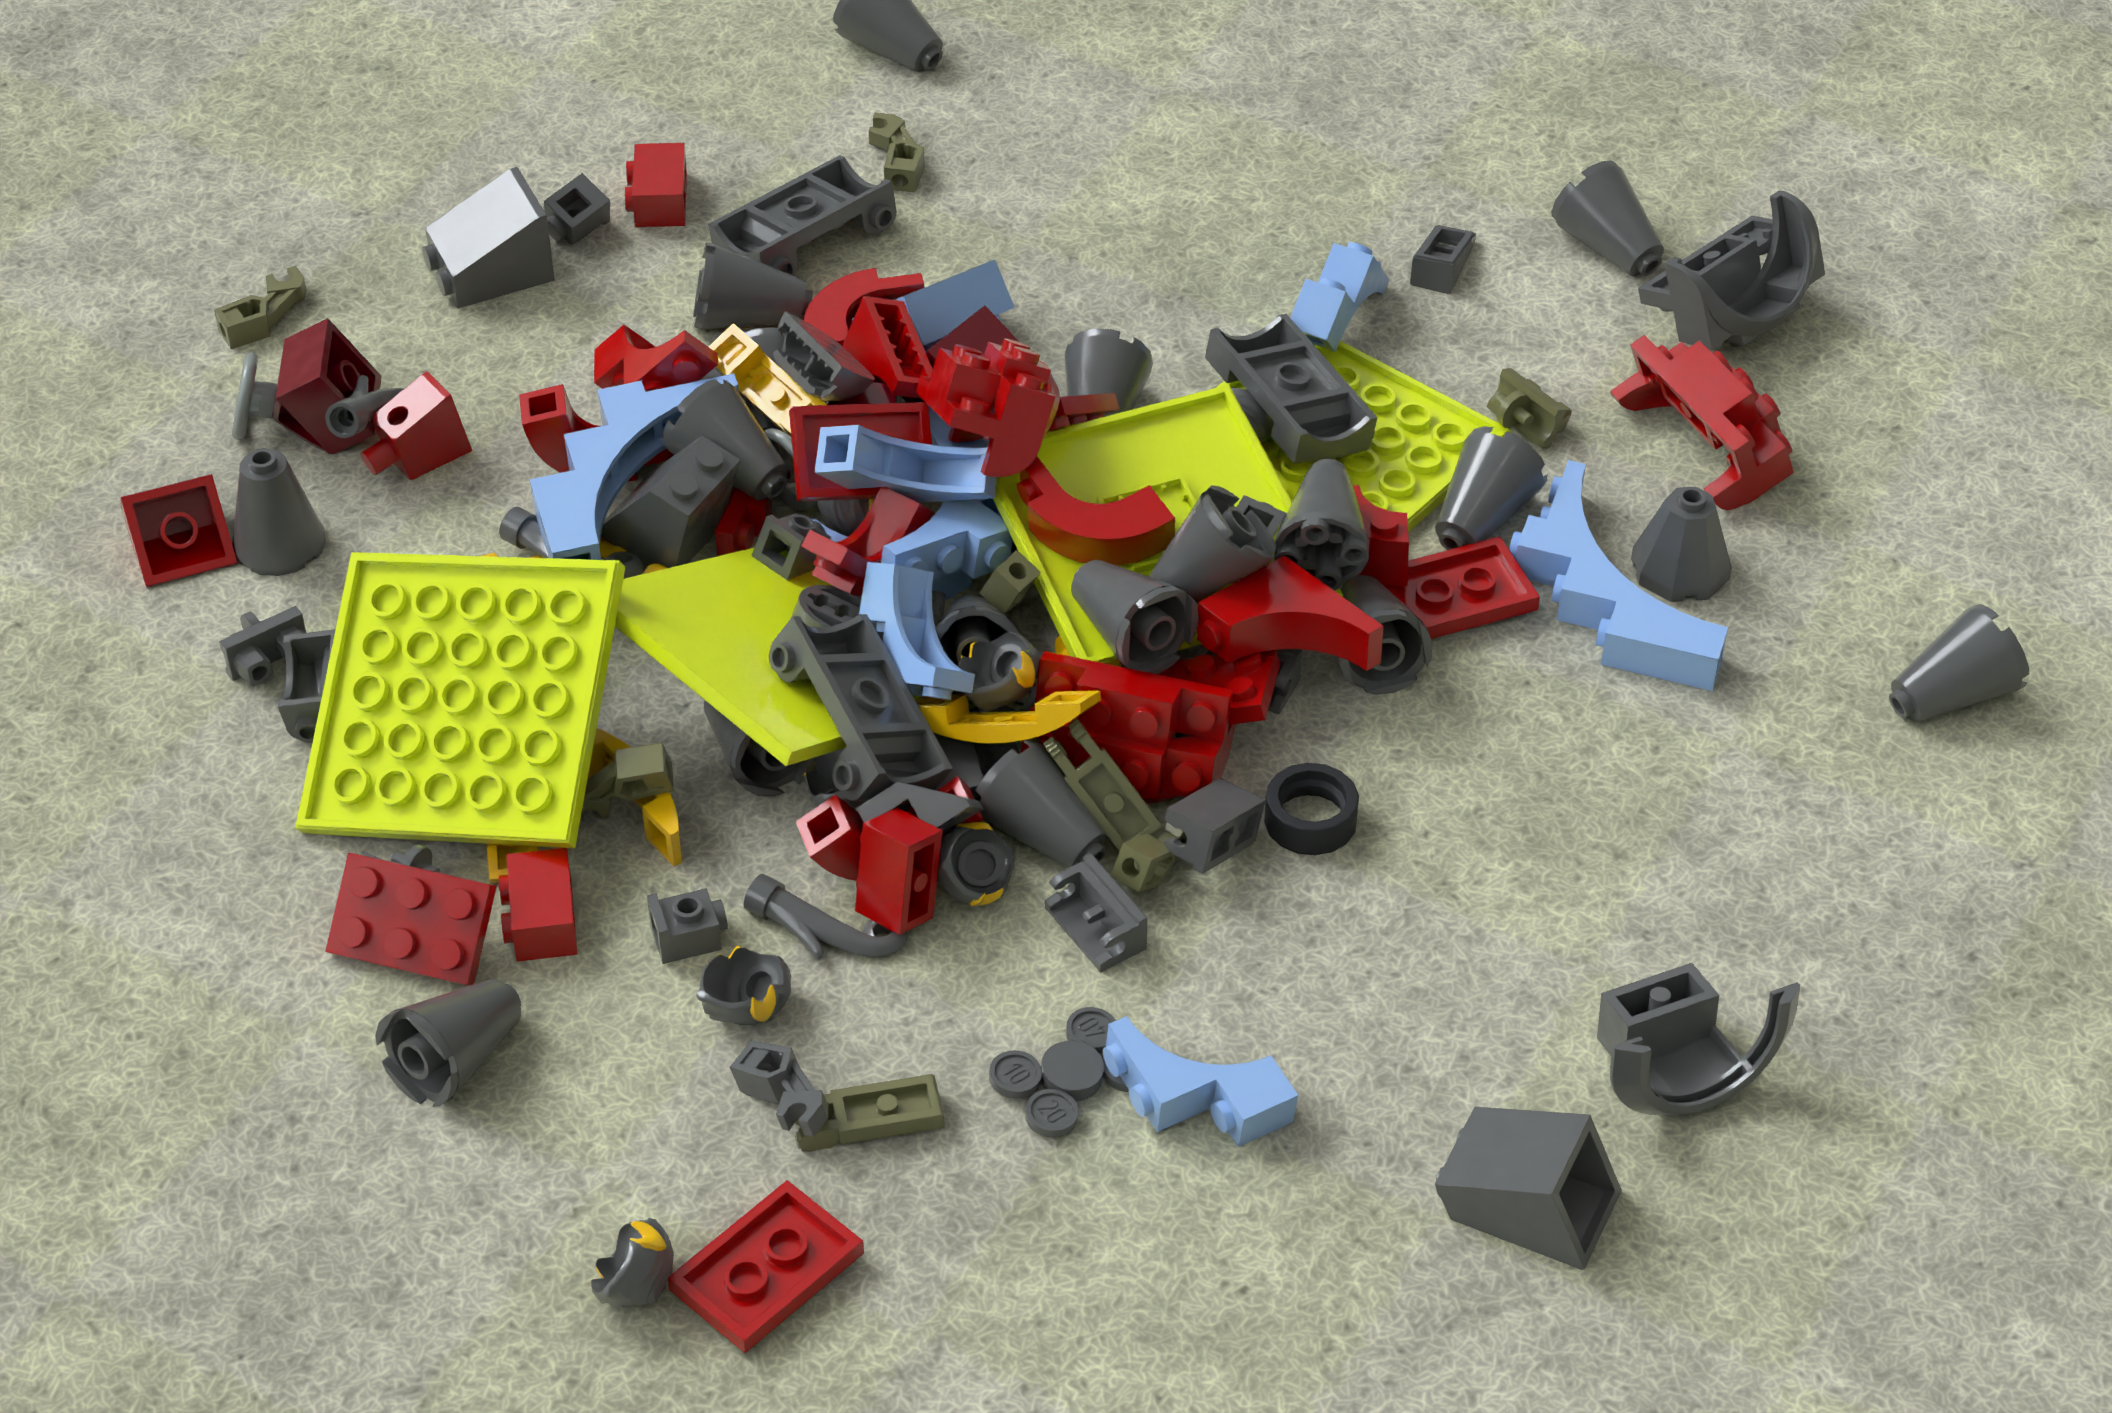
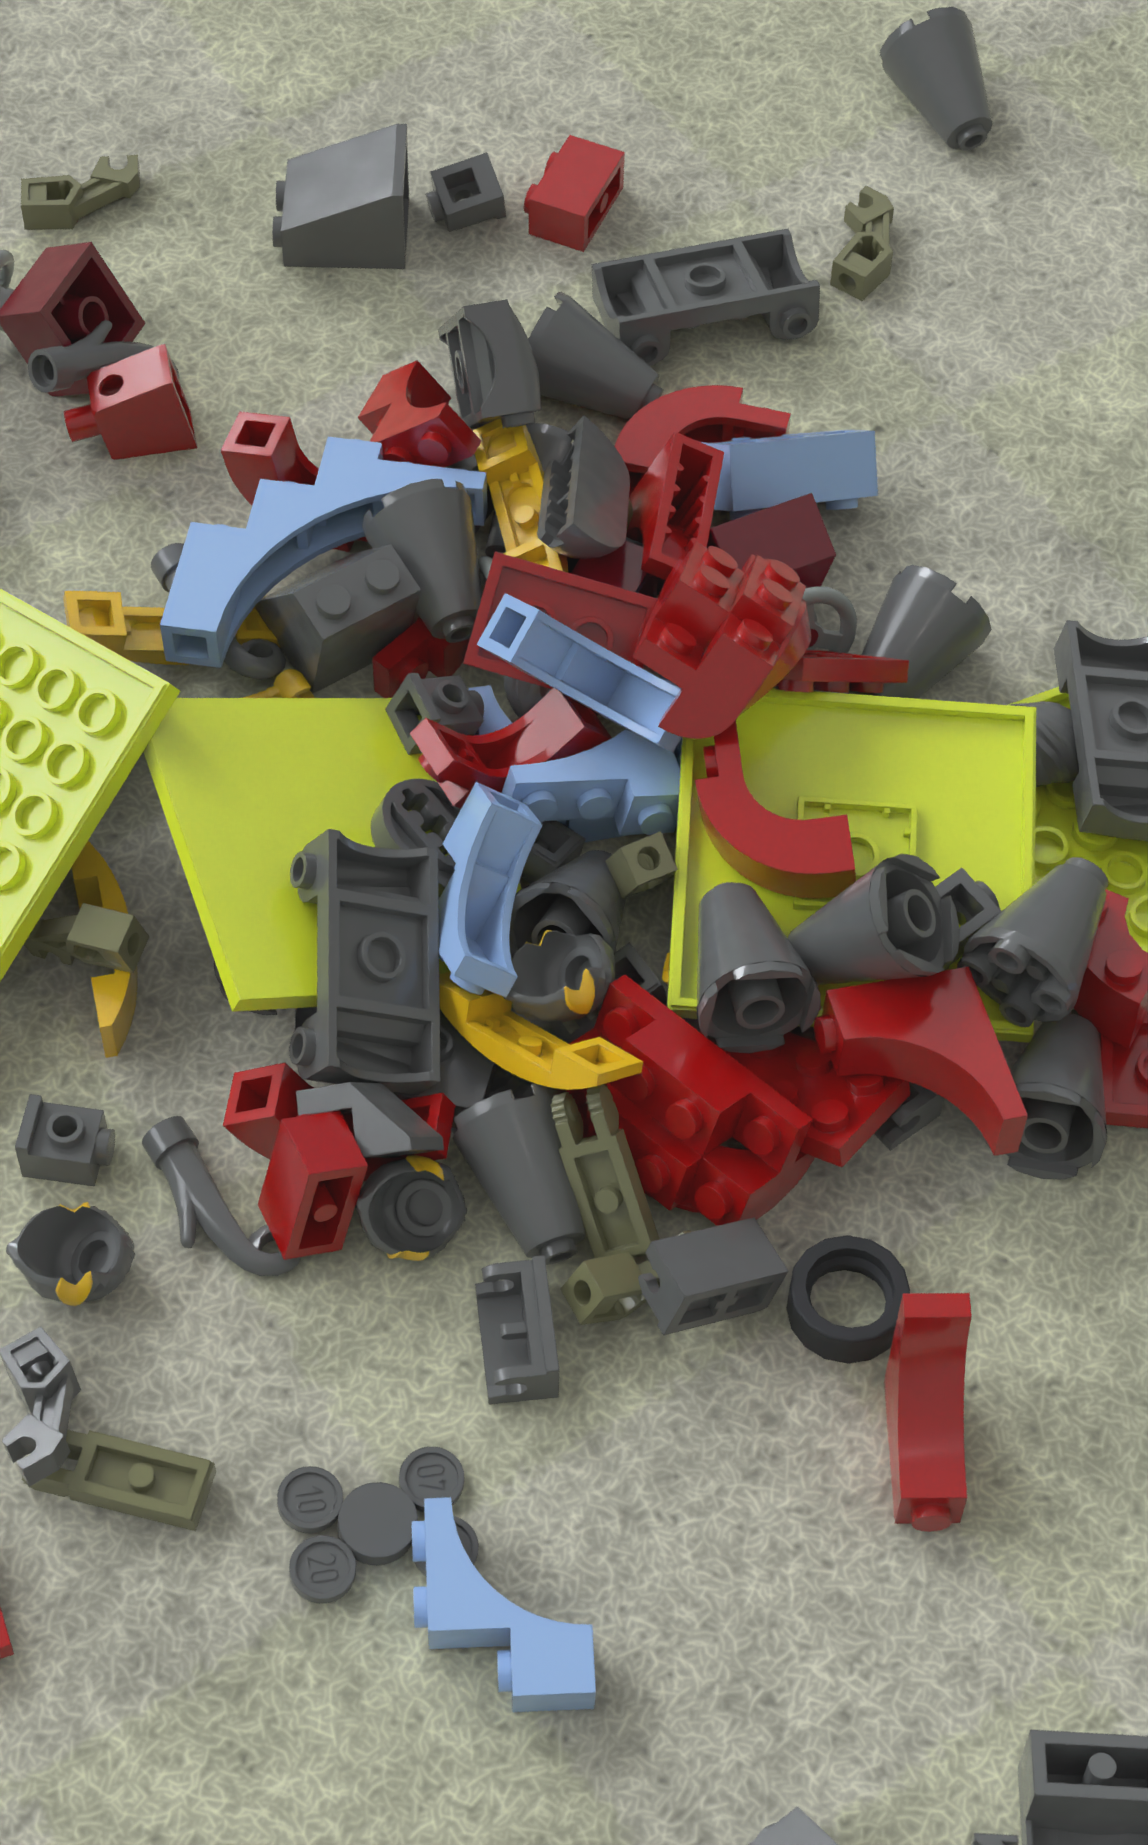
camera: 25 degrees right, 10 degrees up
(696, 293) = (492, 366): none -> dark grey piece
(1407, 839) = (927, 1409): none -> red arch

